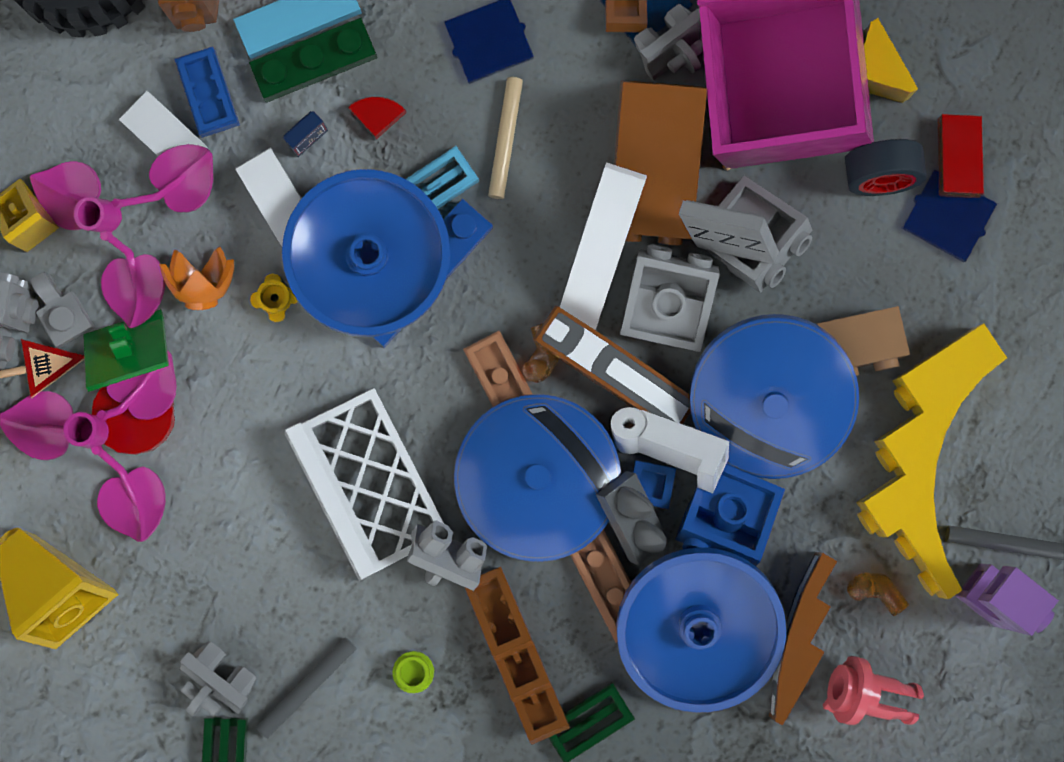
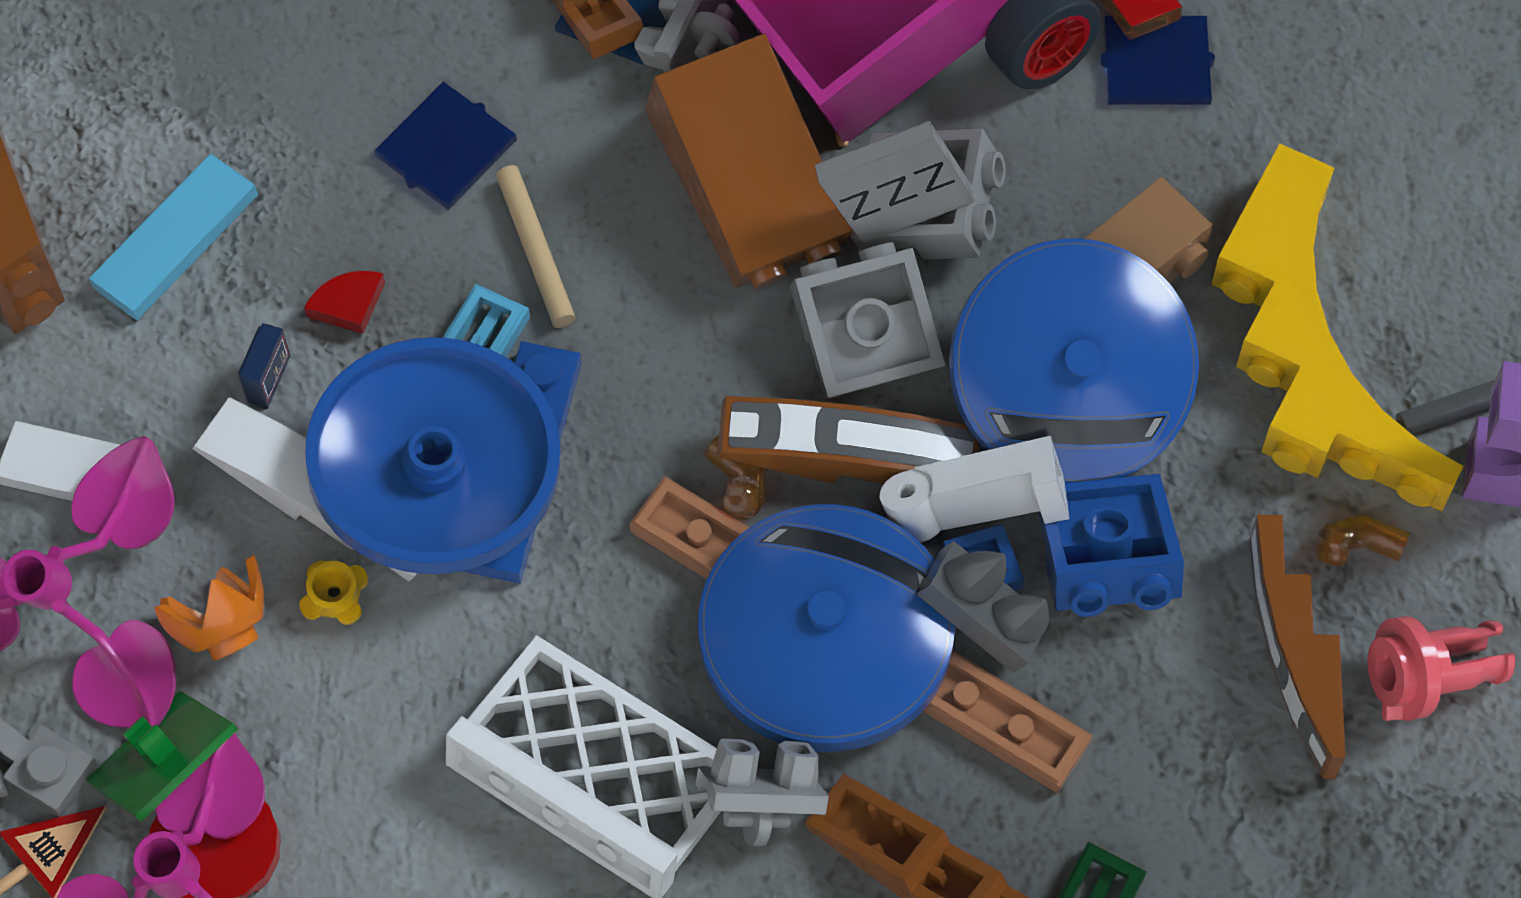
camera: 30 degrees left, 20 degrees down
(207, 92) = (100, 383): blue plate -> none
(313, 60) = (224, 279): dark green plate -> none
(602, 243) = (739, 281): white slope -> none
(701, 630) = (1161, 698): blue dish -> none

